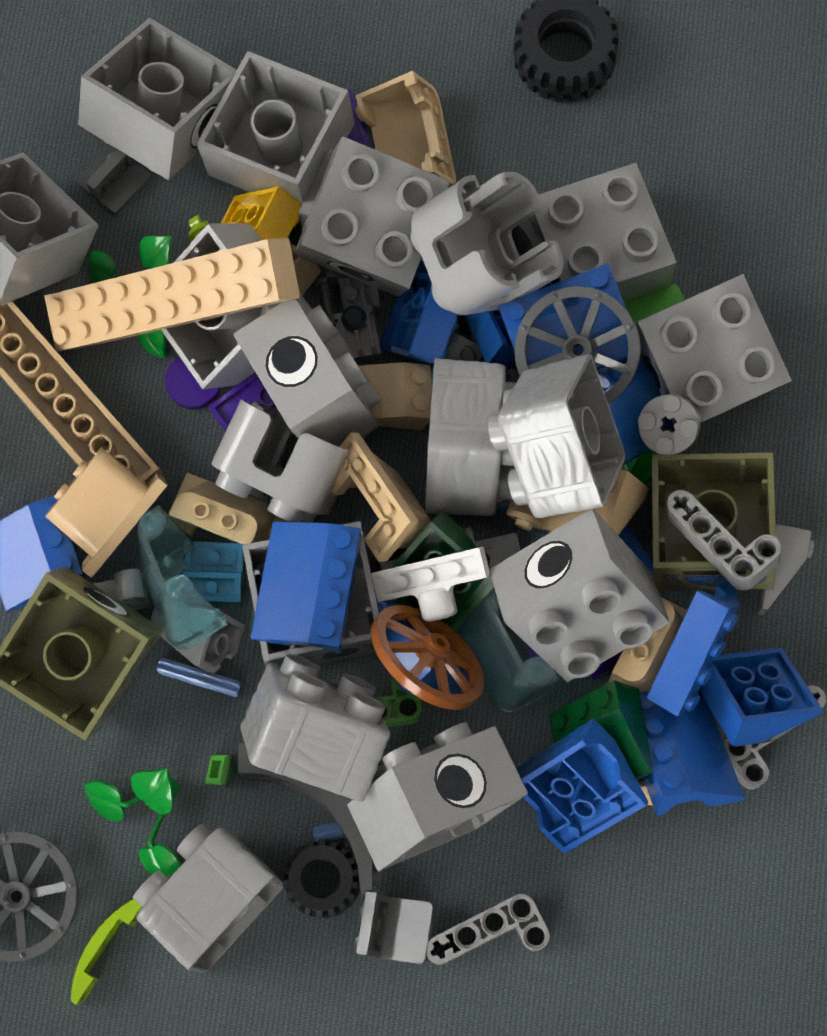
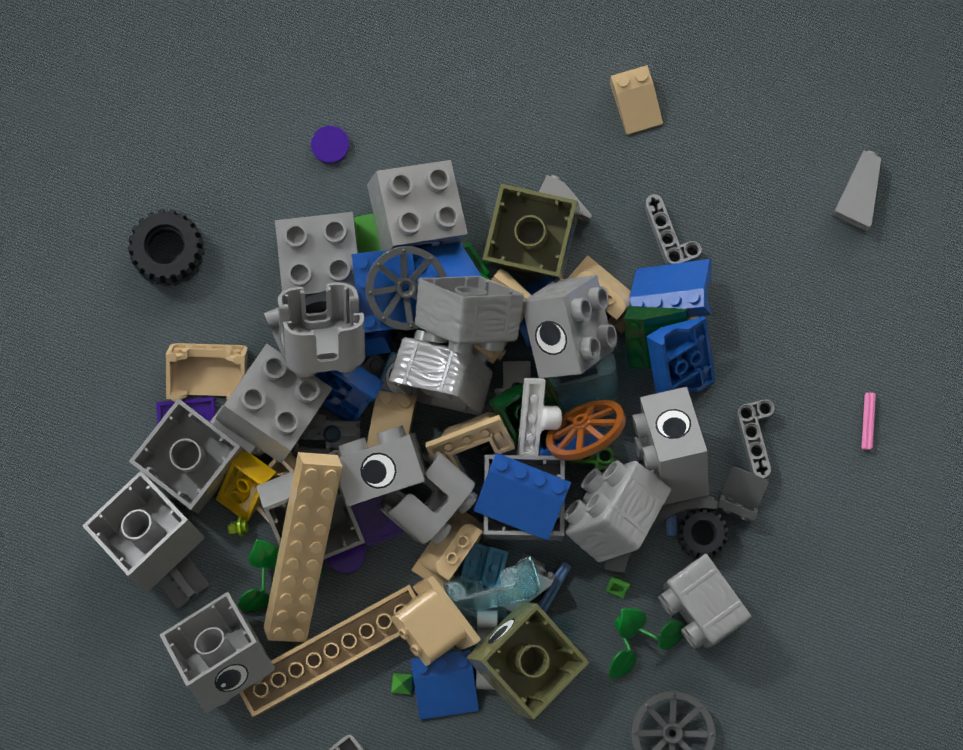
camera: 85 degrees left, 5 degrees up
(24, 494) = (402, 683): none -> bright green slope
(83, 979) = (698, 662): lime slope -> none
(652, 421) = (475, 246): light grey brick -> none
(694, 649) = (615, 263): piece -> none
(717, 537) = (550, 230): light grey beam -> none
(757, 695) = (644, 236): blue slope -> none
(773, 227) = (330, 144): none -> dark purple tile

